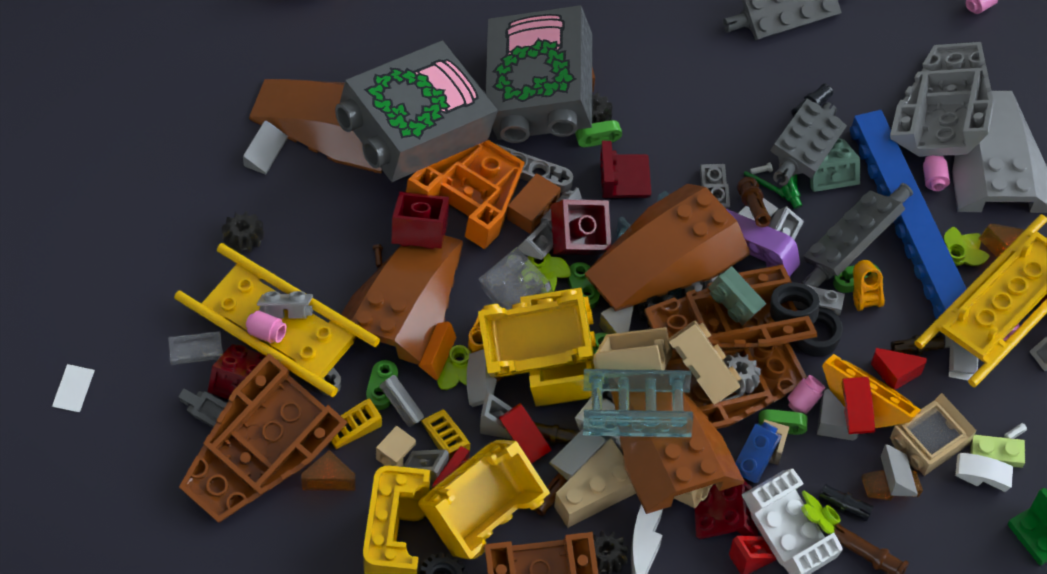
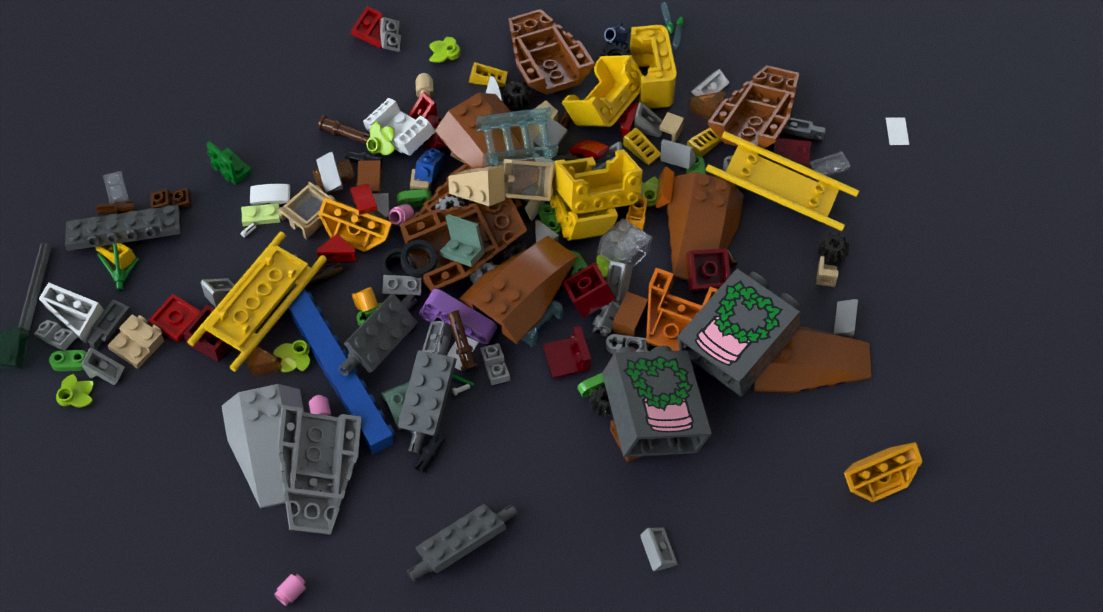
camera: 170 degrees right, 0 degrees up
(266, 203) = (826, 274): none -> tan panel
(266, 327) = (786, 166): bright pink brick -> none
(296, 303) = (779, 182): light grey hinge -> none
(313, 515) = (712, 84): none -> white slope
(843, 461) = (370, 173): none -> dark orange panel

